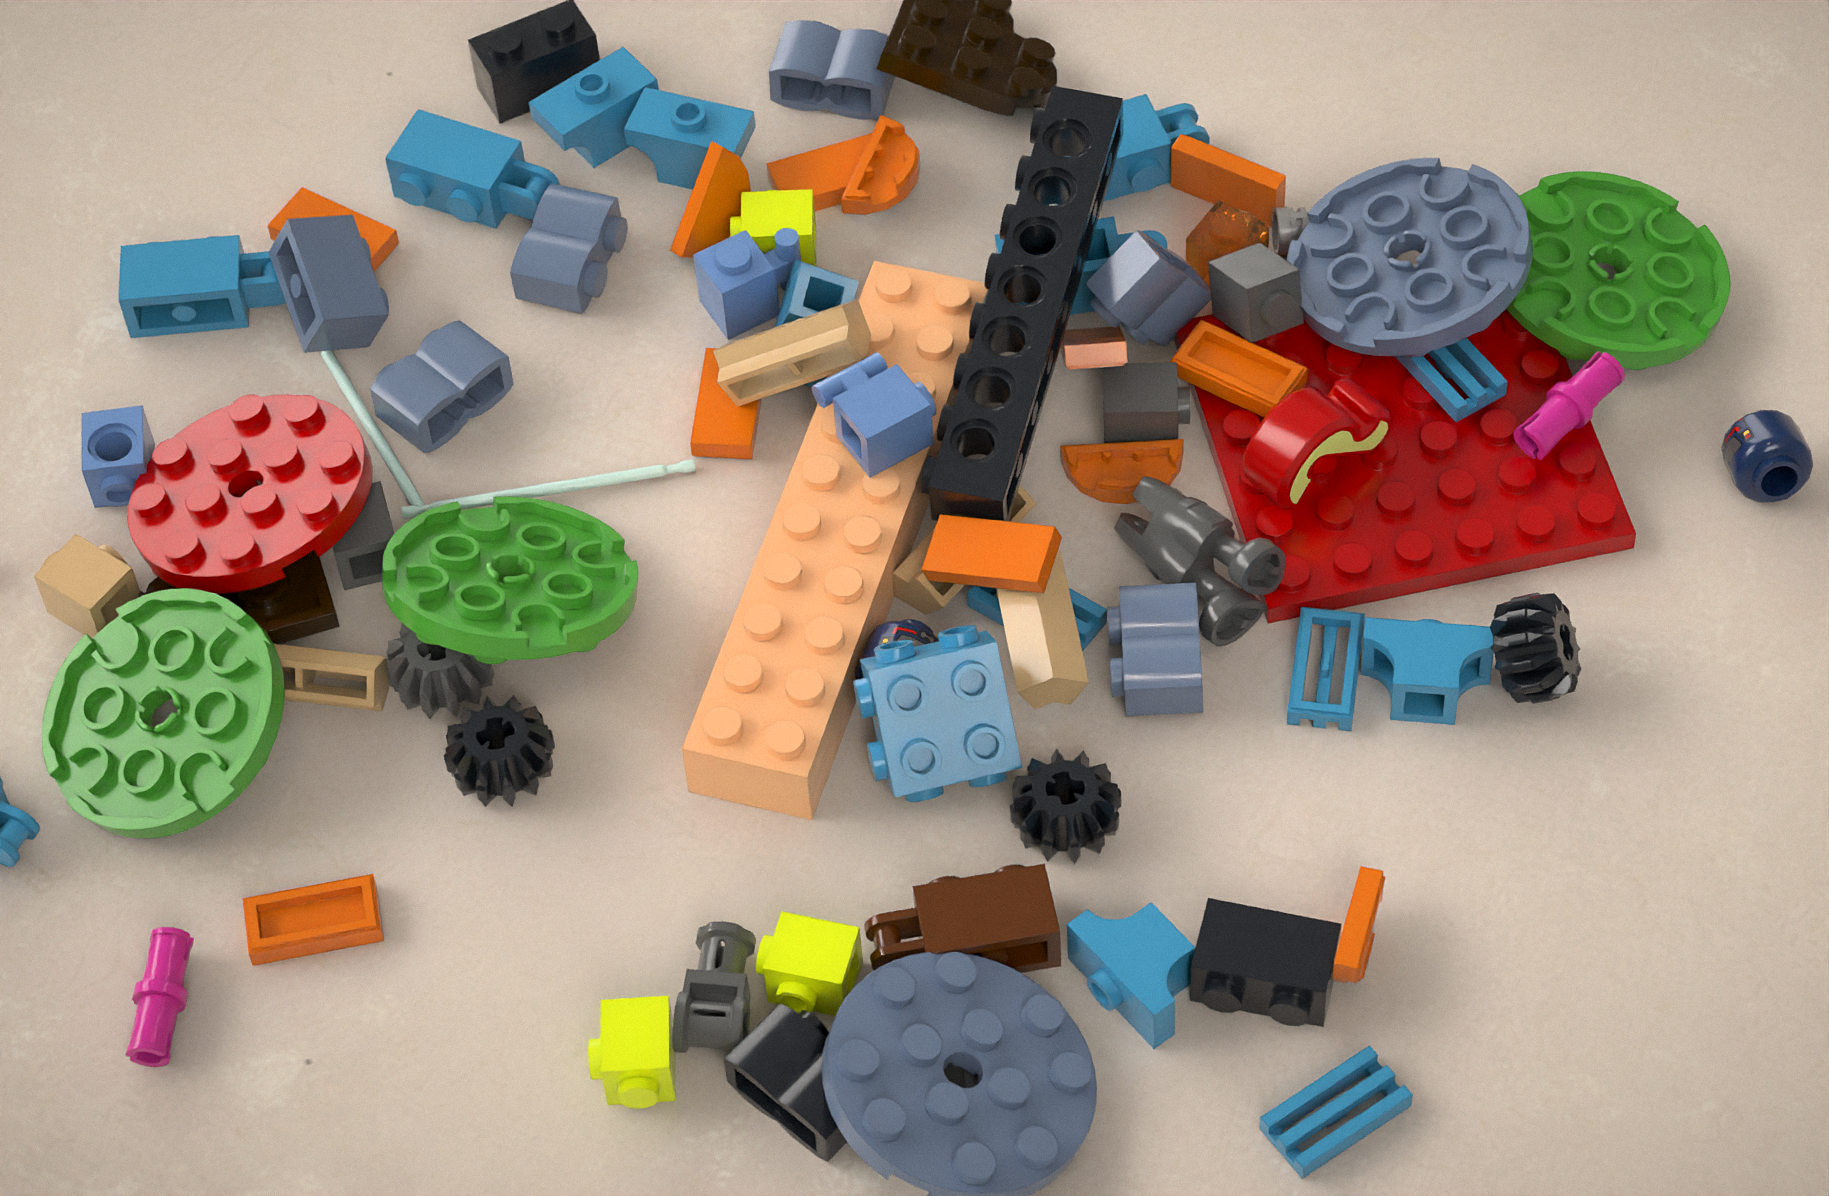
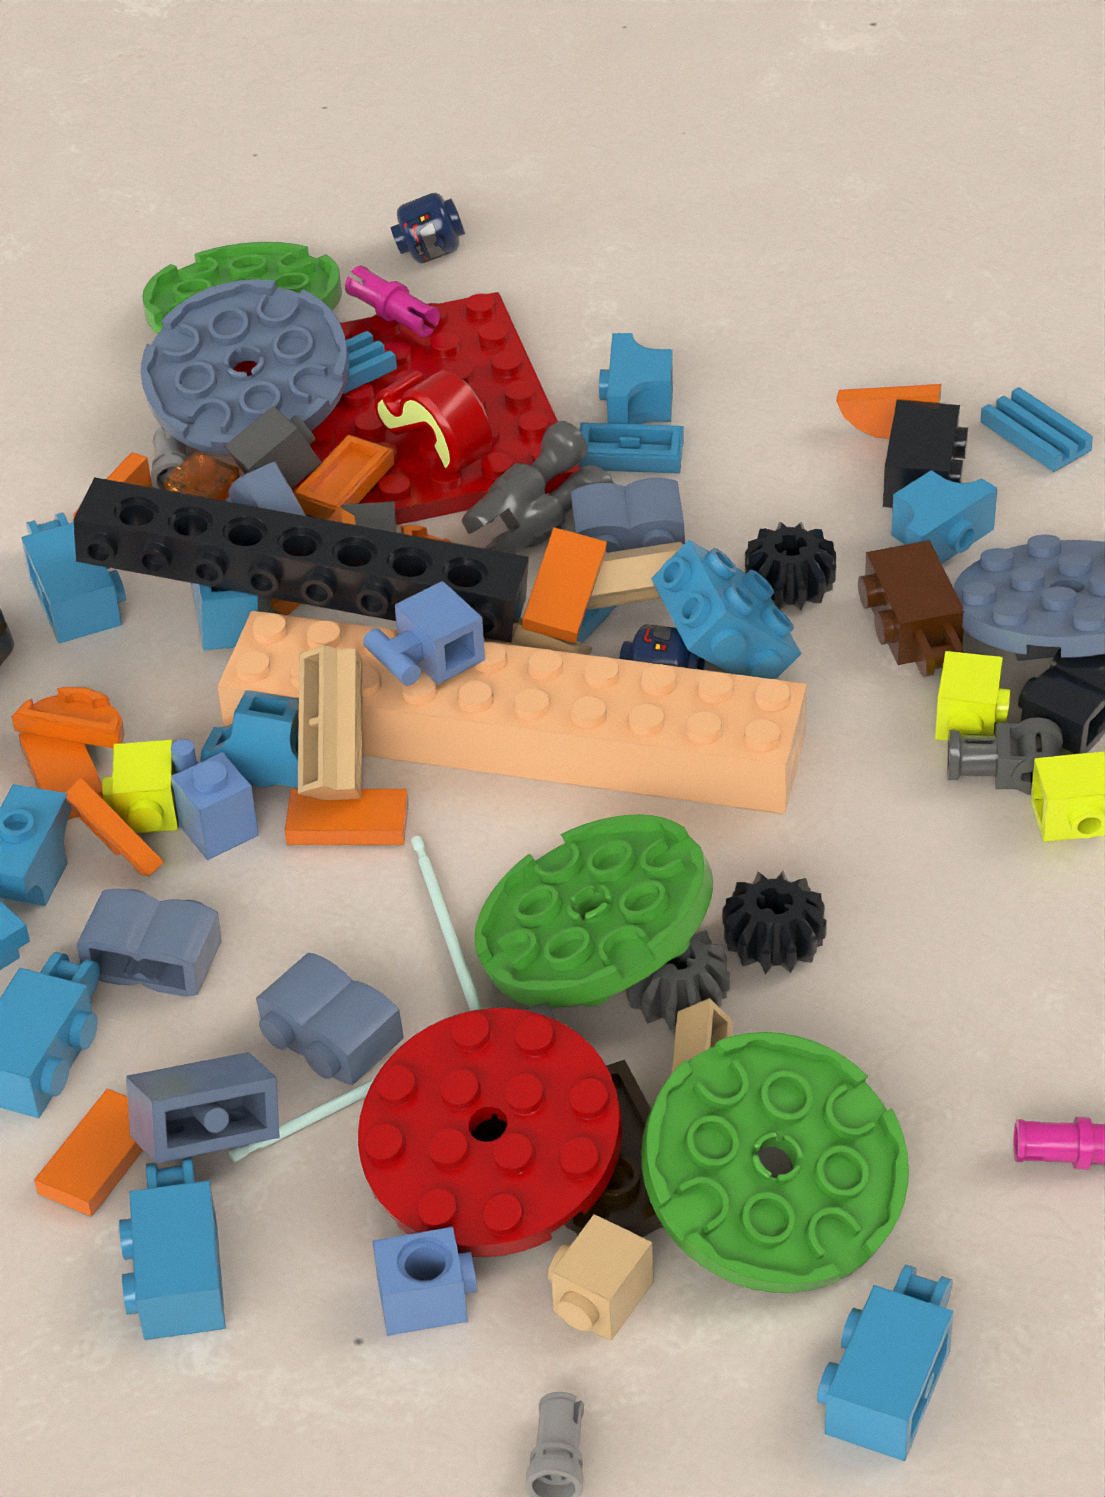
camera: 95 degrees left, 10 degrees down
(313, 919) = (968, 1051): orange tile -> none
(1535, 648) = (625, 311): black gear -> none

